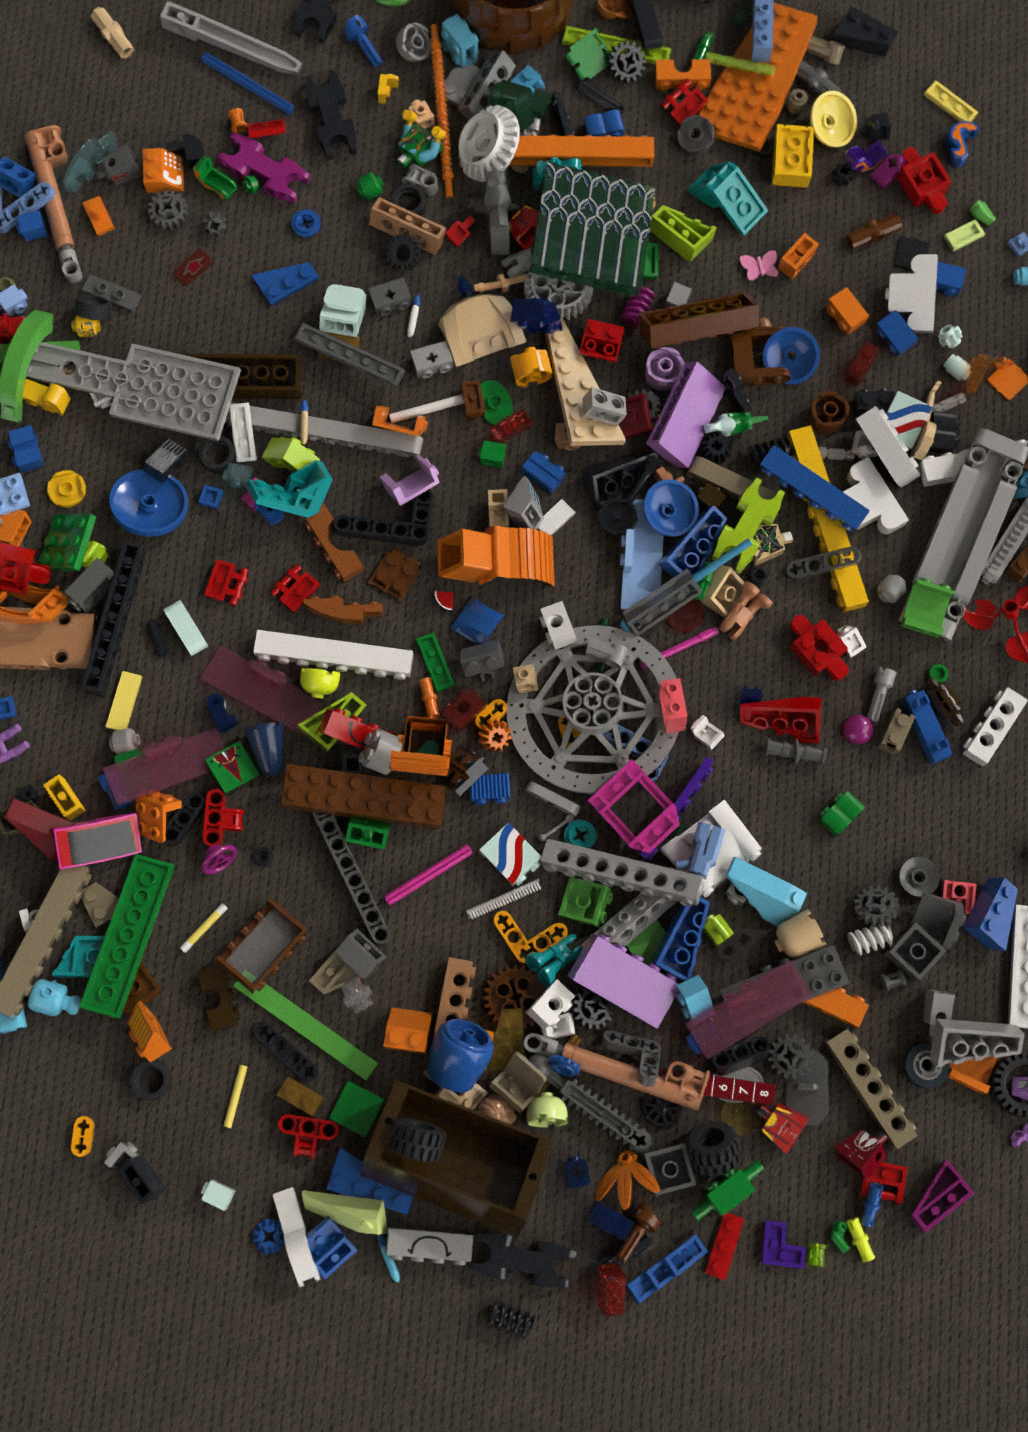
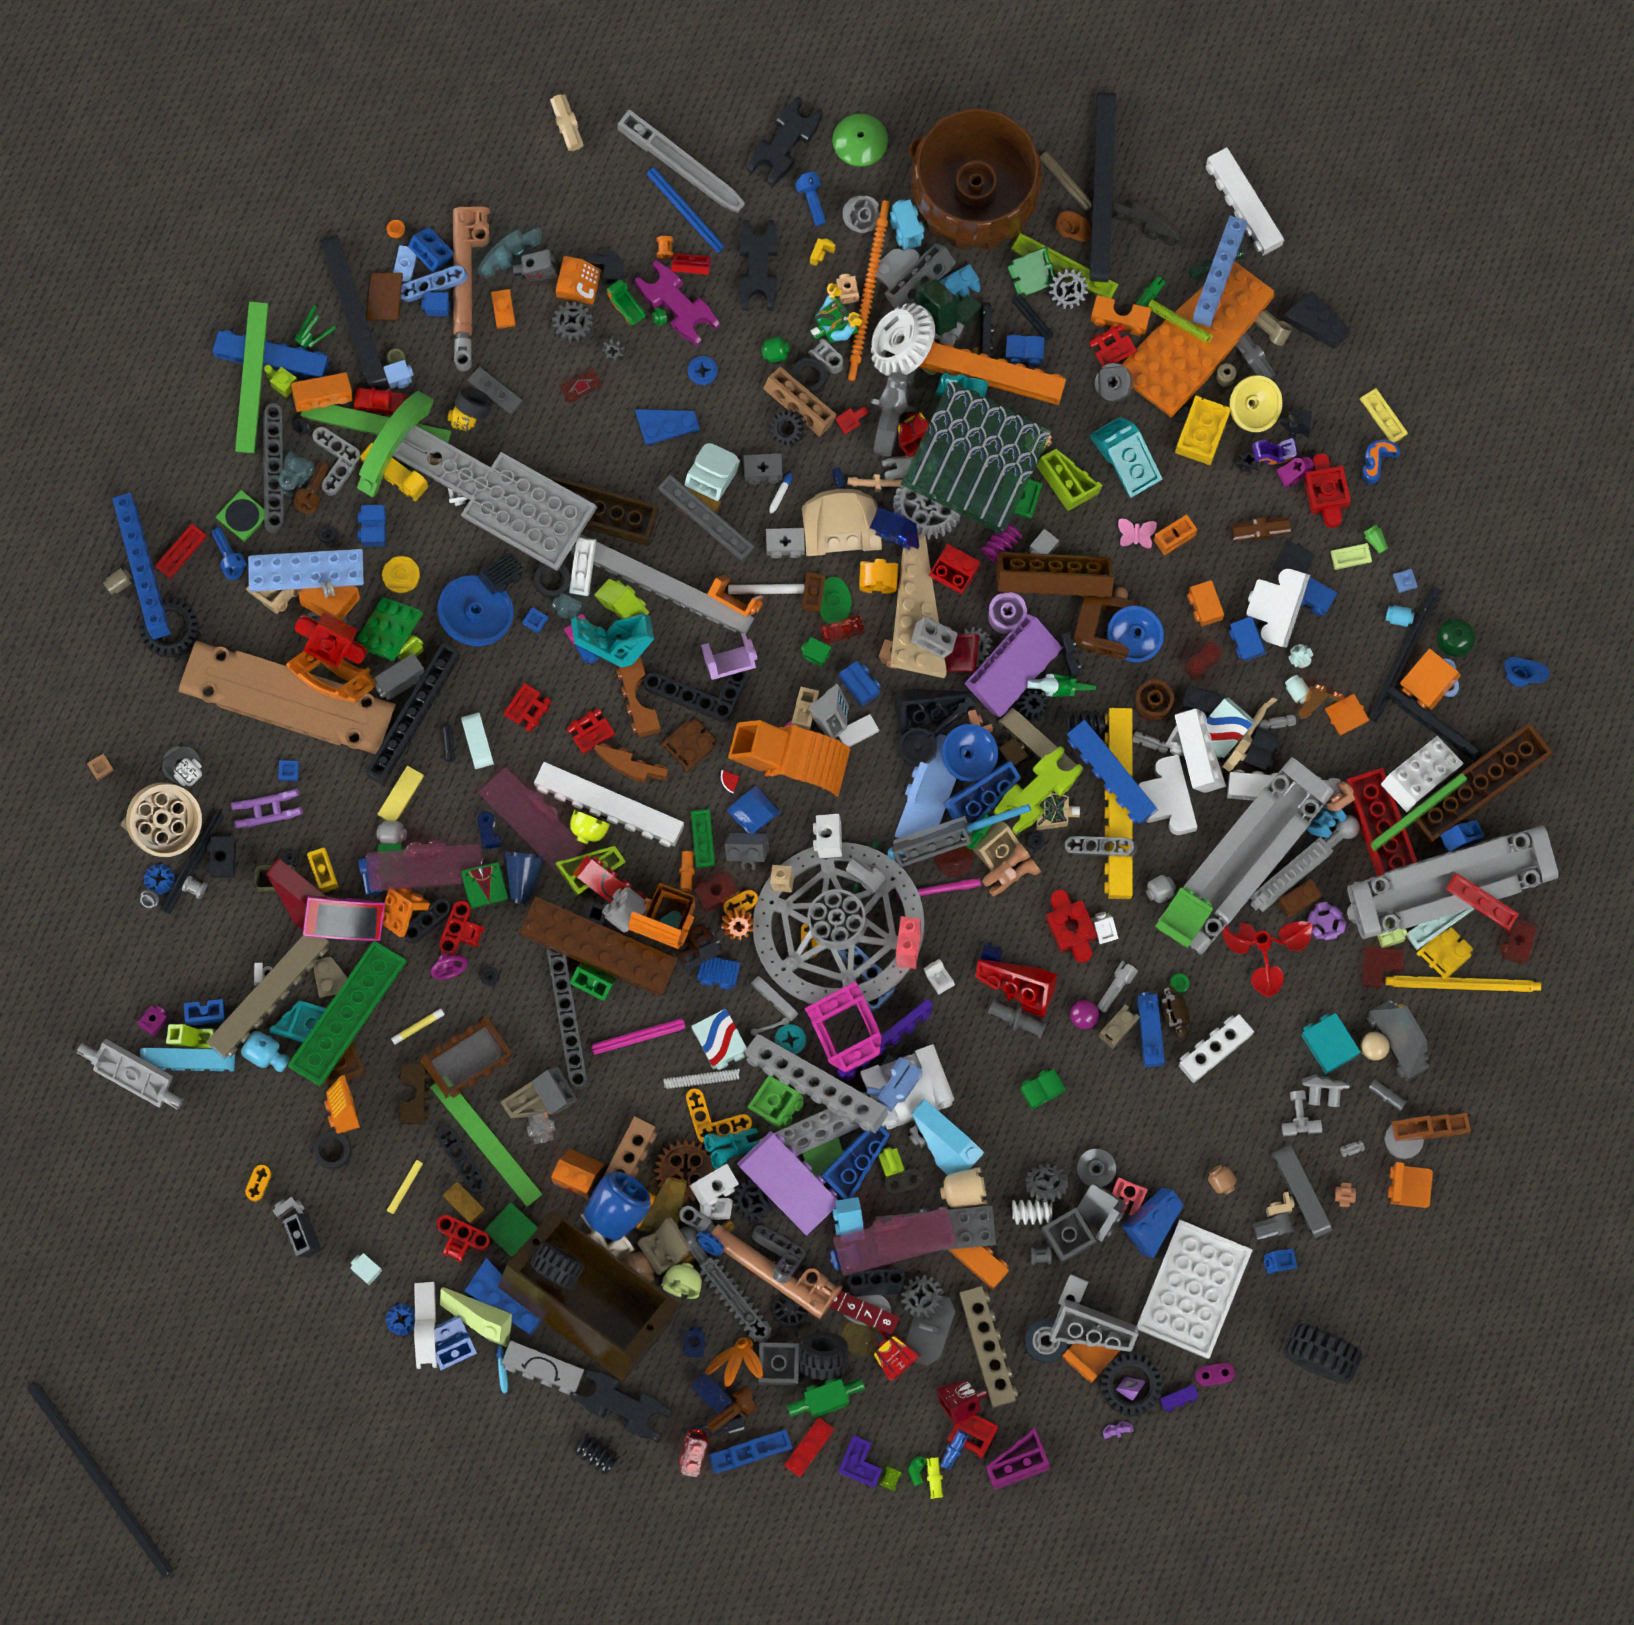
camera: 20 degrees right, 0 degrees up
(304, 422) = (643, 573): tan piece -> none

